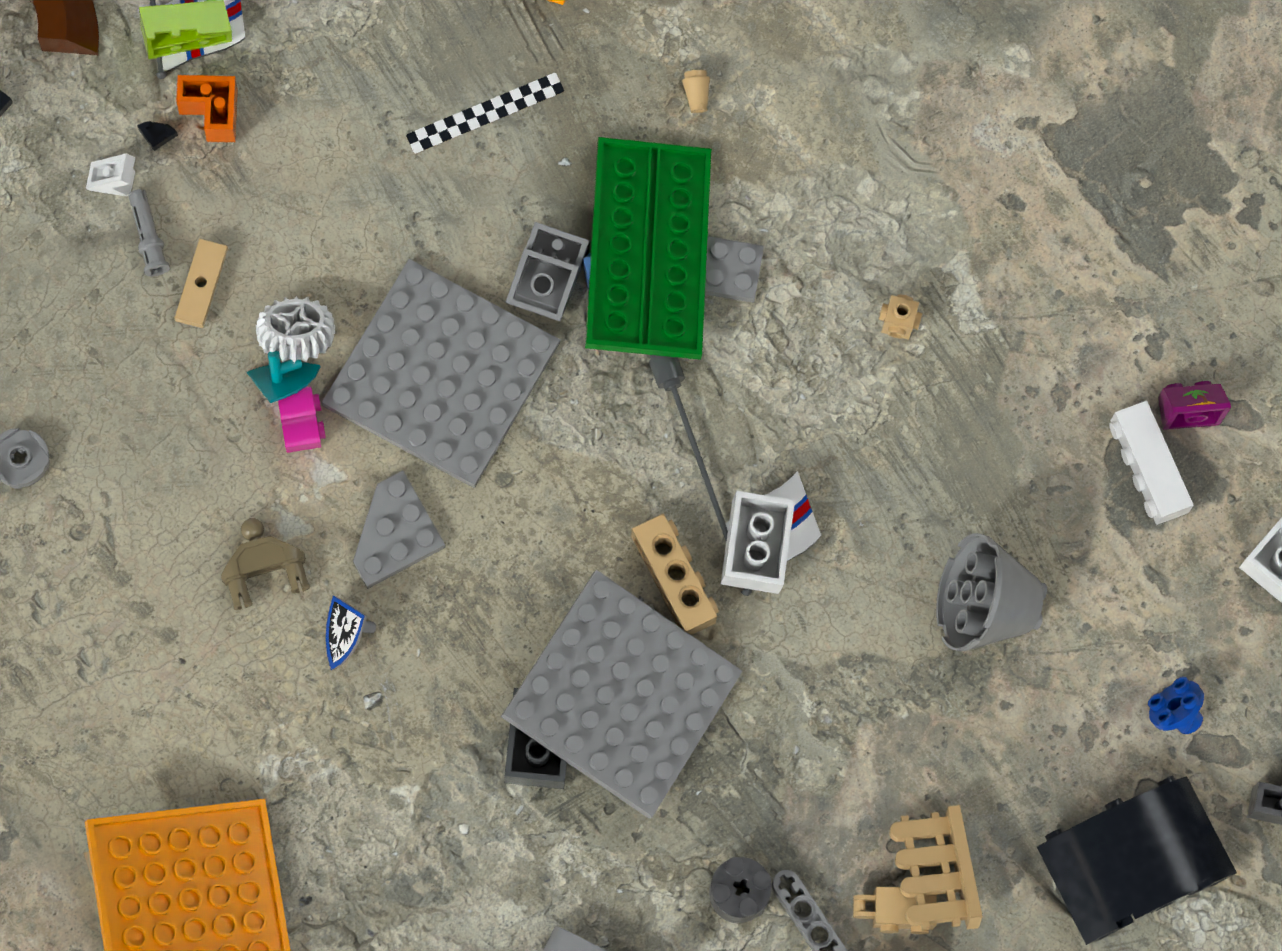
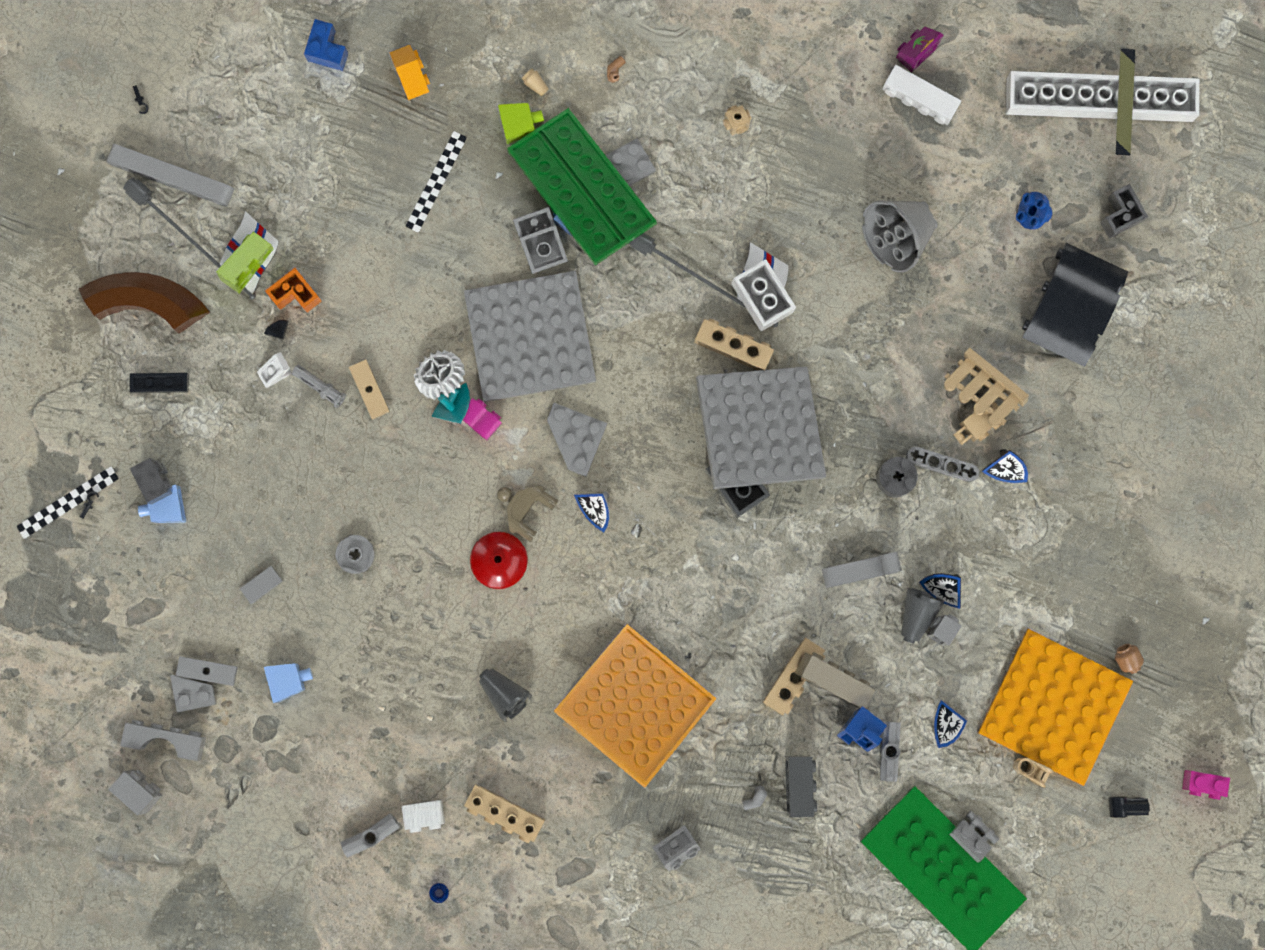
camera: 35 degrees left, 10 degrees up
(47, 761) = (504, 694): none -> dark grey cone
(183, 620) = (501, 574): none -> red dish
(639, 116) = (518, 120): none -> lime torso
(802, 147) = (613, 69): none -> medium nougat arm

